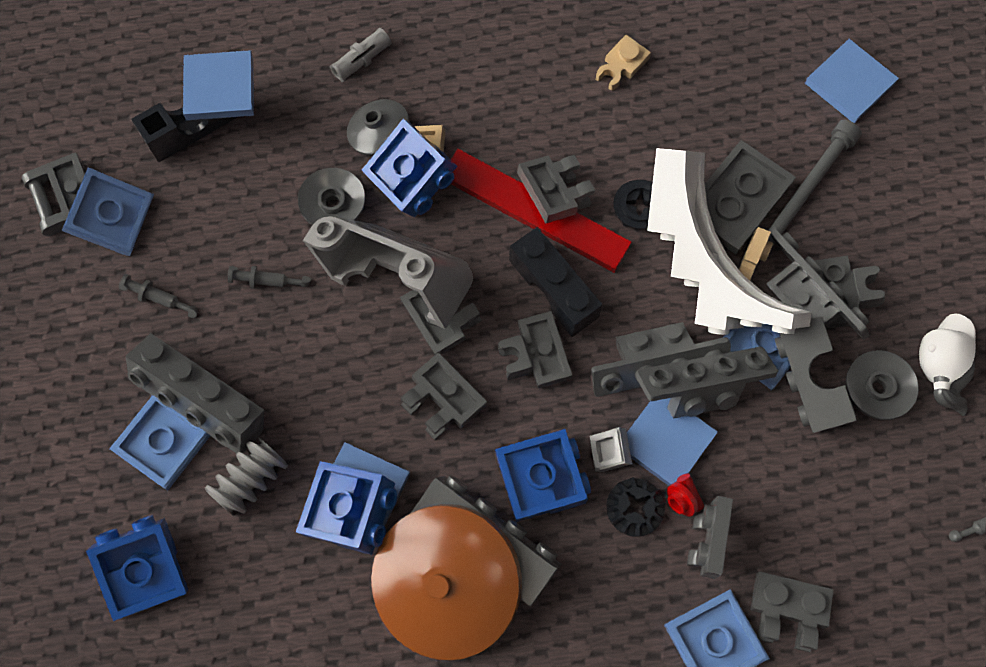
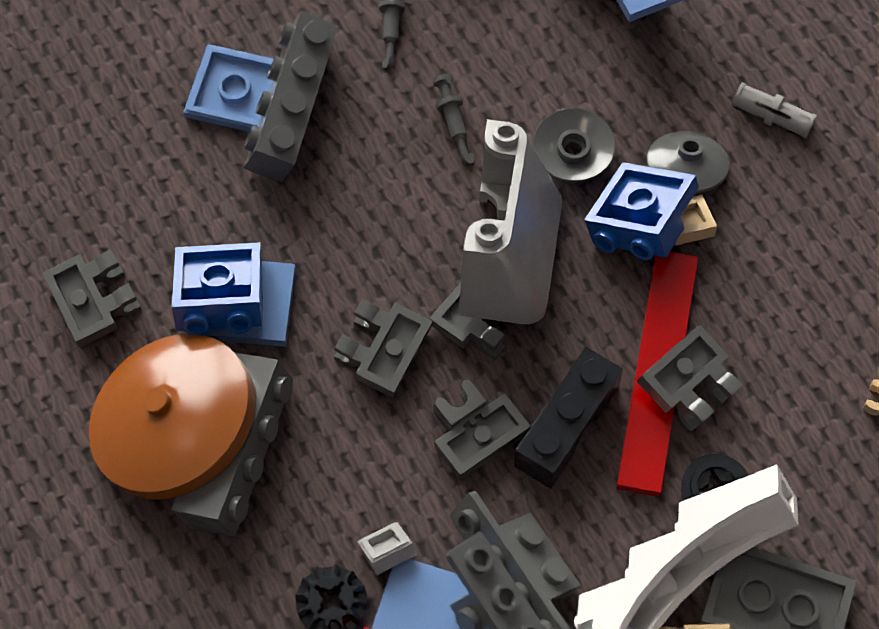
camera: 70 degrees right, 5 degrees down
(137, 567) = (93, 116): blue plate -> none
(246, 477) = (221, 183): light grey piece -> none
(305, 629) = (80, 300): none -> dark grey plate
(543, 475) = (328, 480): blue plate -> none

